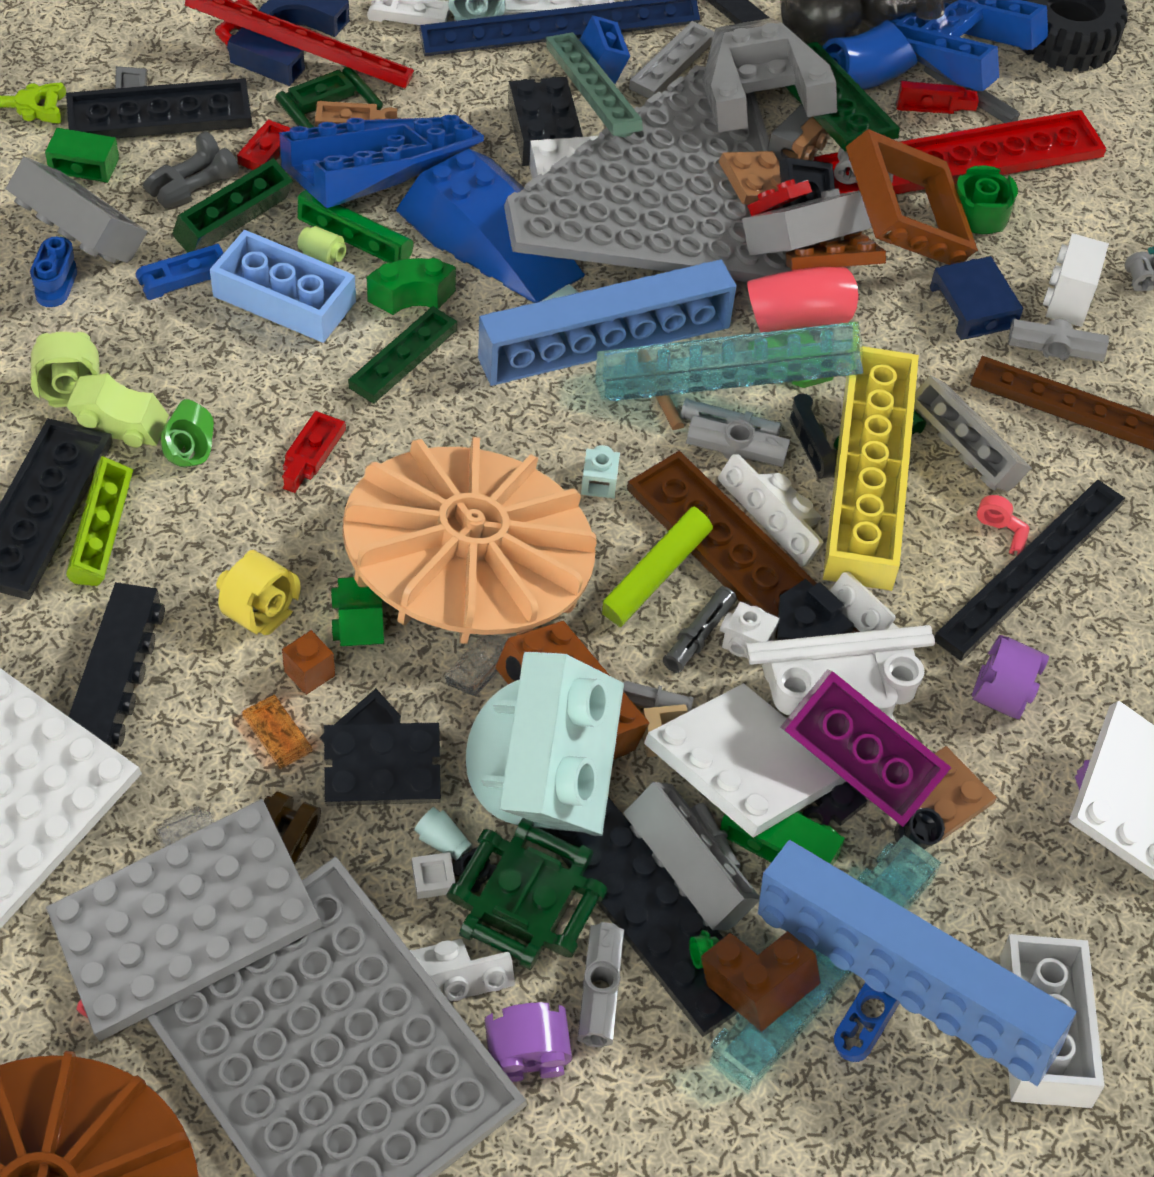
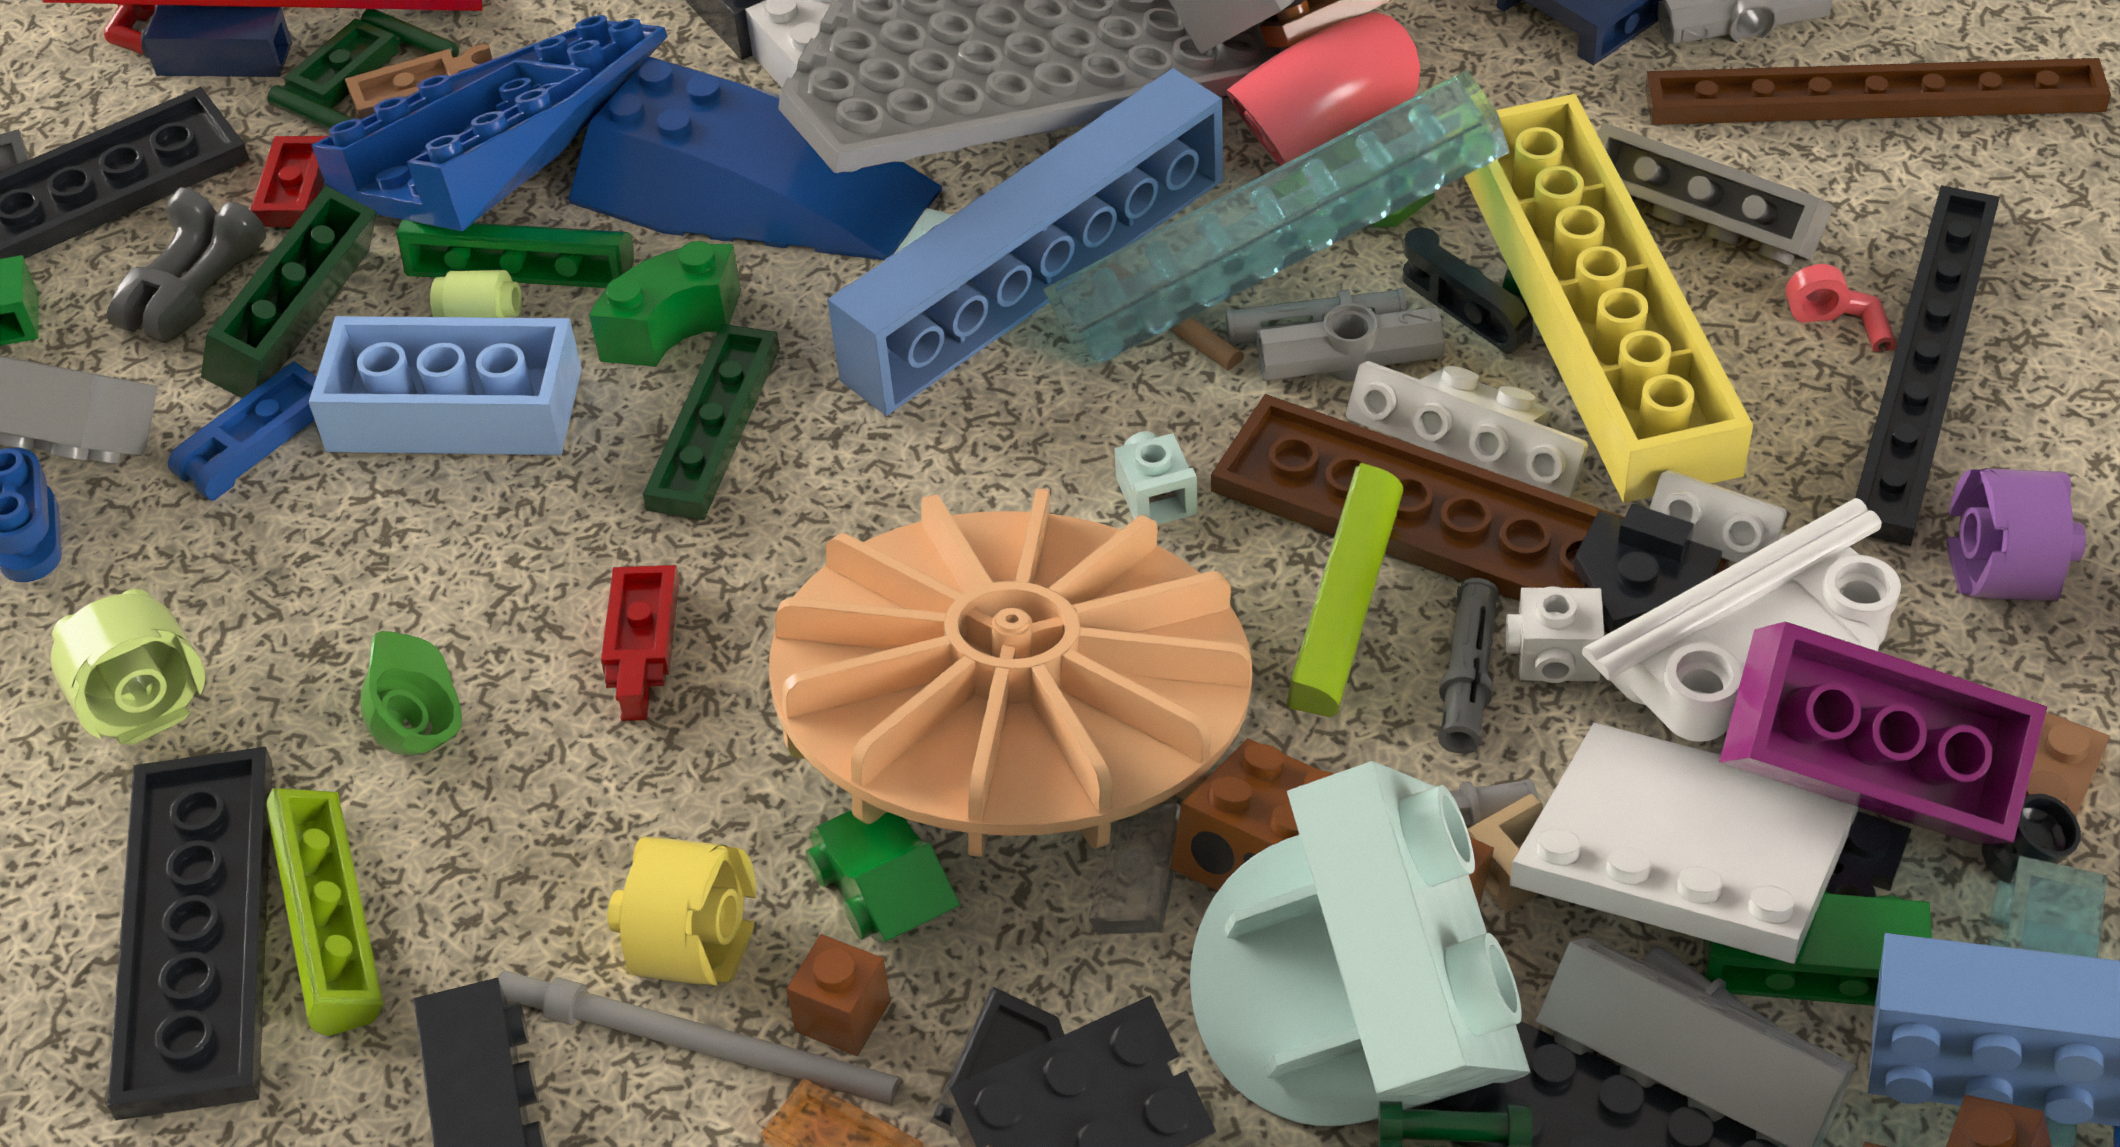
camera: 15 degrees left, 5 degrees down
(114, 409) = (253, 700): yellowish green brick -> none
(189, 614) = (569, 1000): none -> light grey bar

